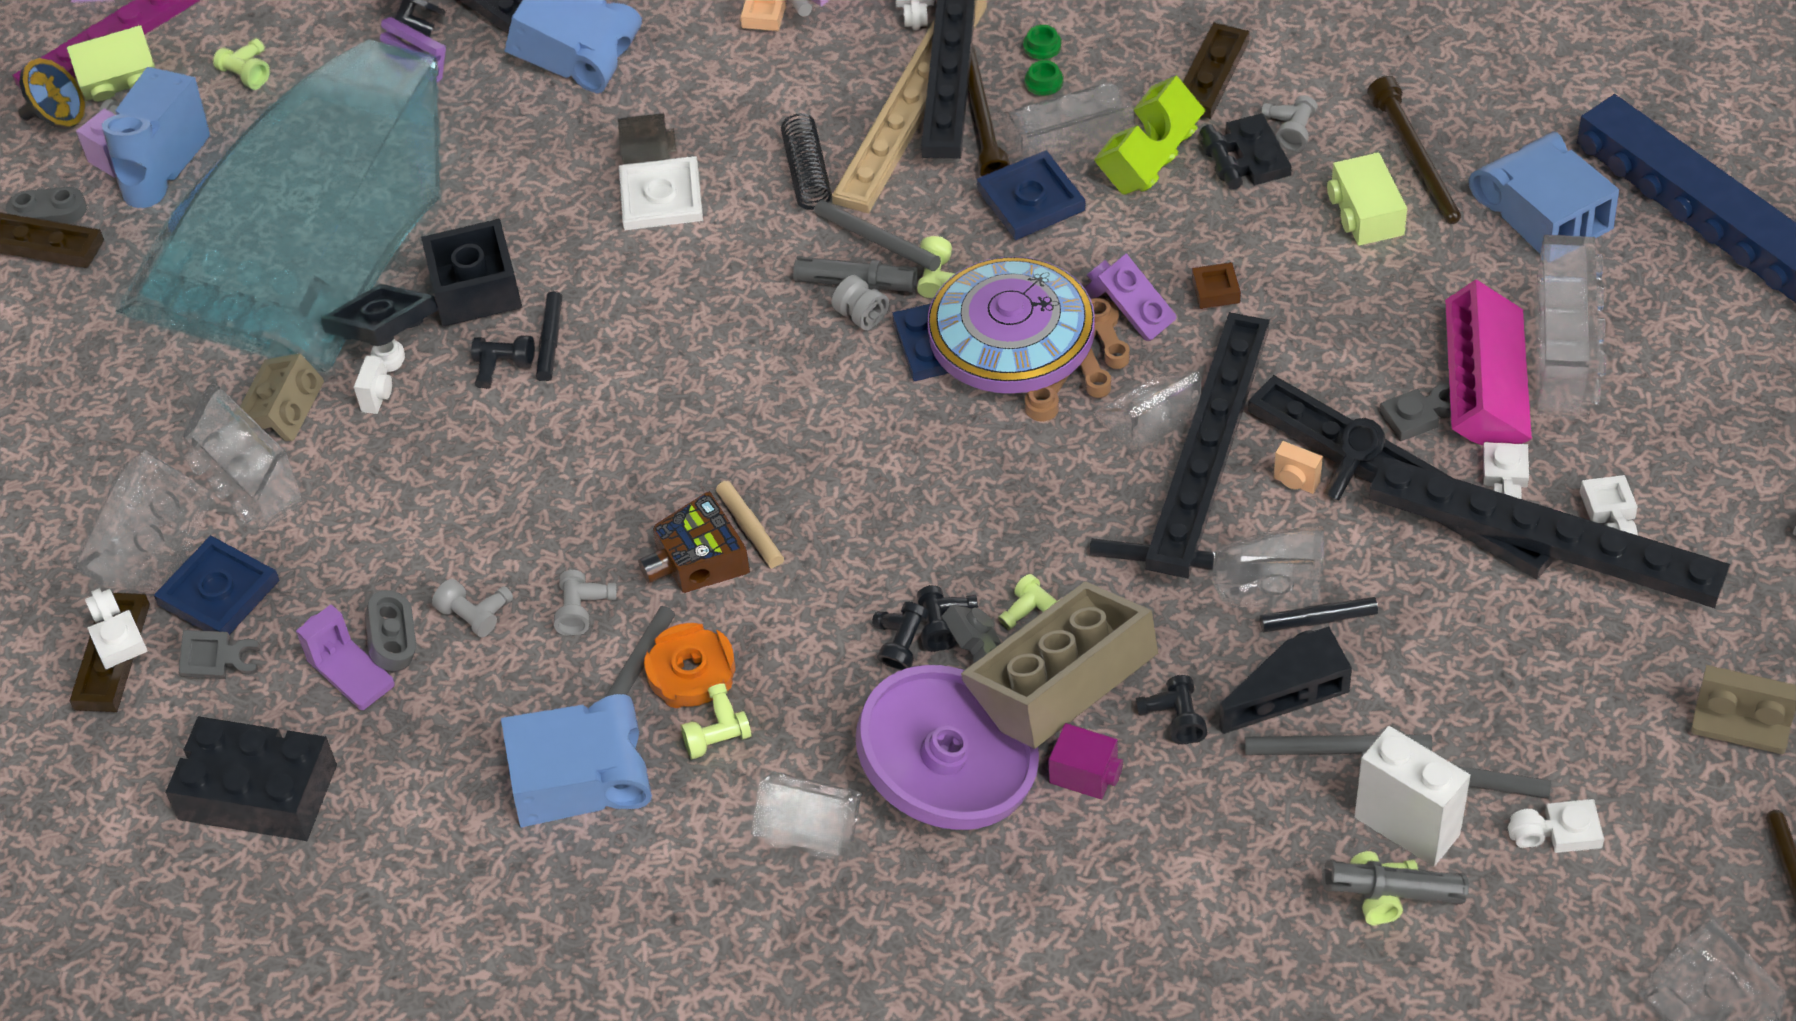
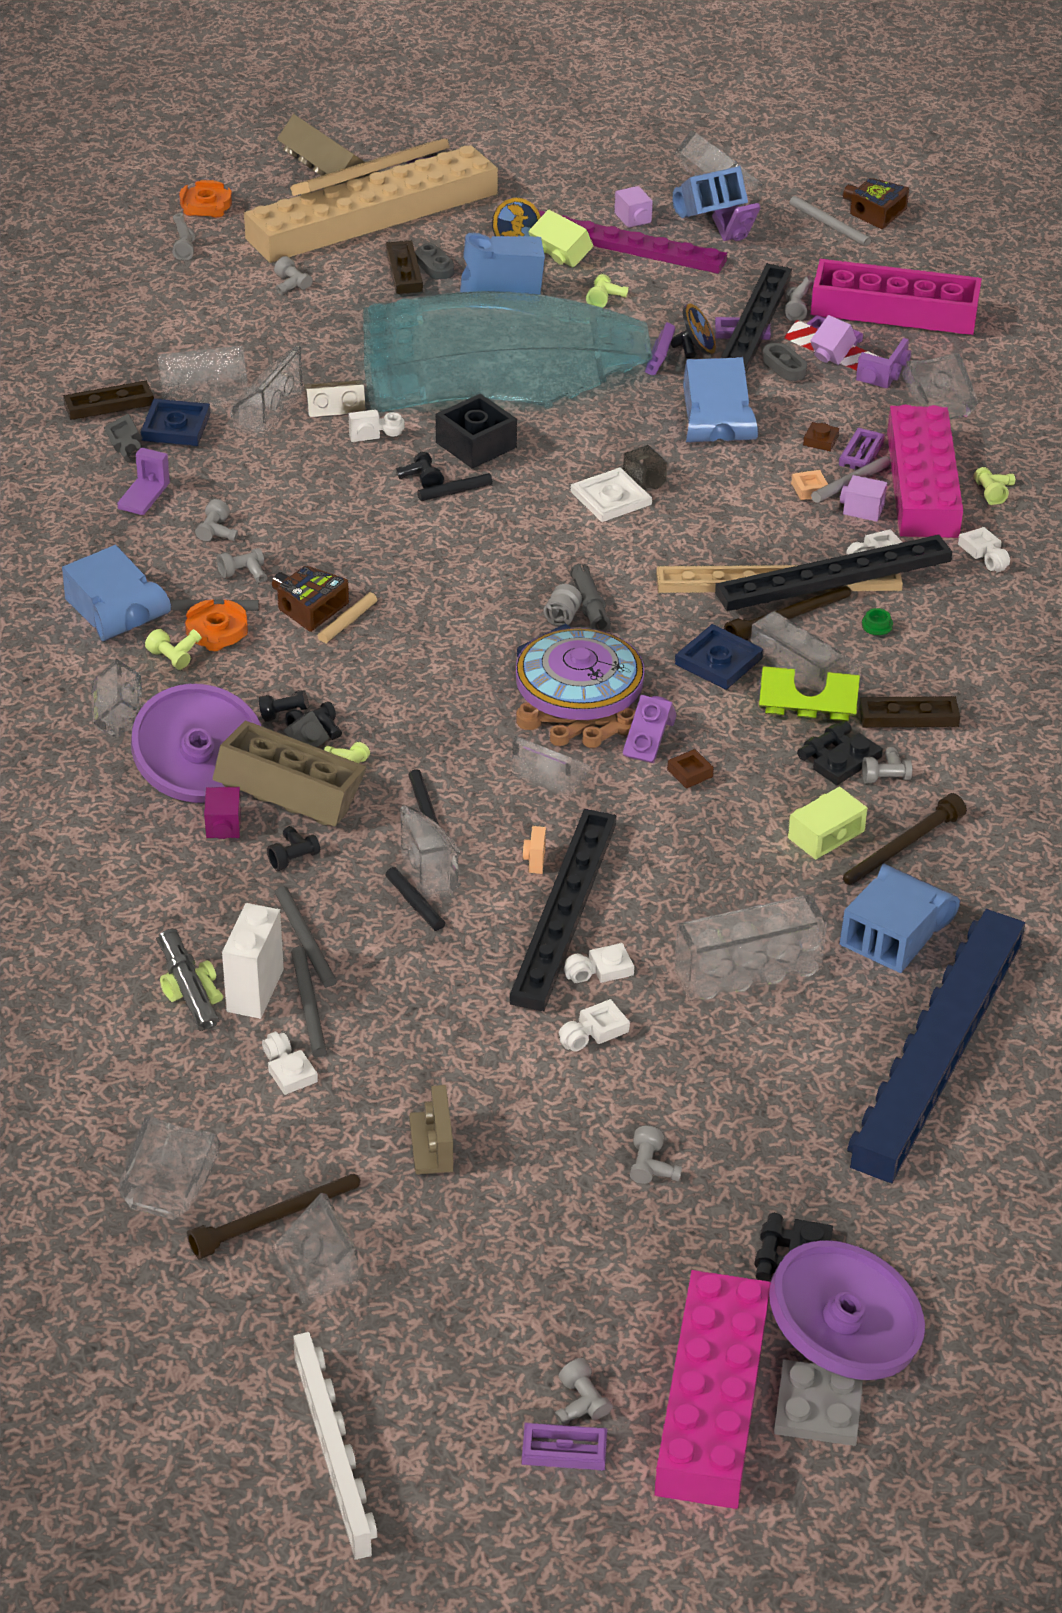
camera: 60 degrees right, 10 degrees down
(117, 636) = (113, 393): white plate -> none
(251, 778) = (40, 478): black piece -> none
(379, 314) = (415, 404): black plate -> none
(390, 634) = (175, 495): dark grey plate -> none
(793, 171) = (701, 535): black piece -> none
(878, 235) = (628, 595): dark grey bar -> none
(933, 280) = (632, 628): yellowish green piece -> none
(1044, 78) = (841, 632): green plate -> none
(1207, 446) = (536, 798): black plate -> none
(1293, 677) = (341, 891): black slope -> none
(1361, 441) = (566, 867): black plate -> none
(1415, 414) = (634, 902): dark grey plate -> none
(1487, 366) = (653, 931): dark pink brick -> none
(1550, 532) = (543, 990): black plate -> none

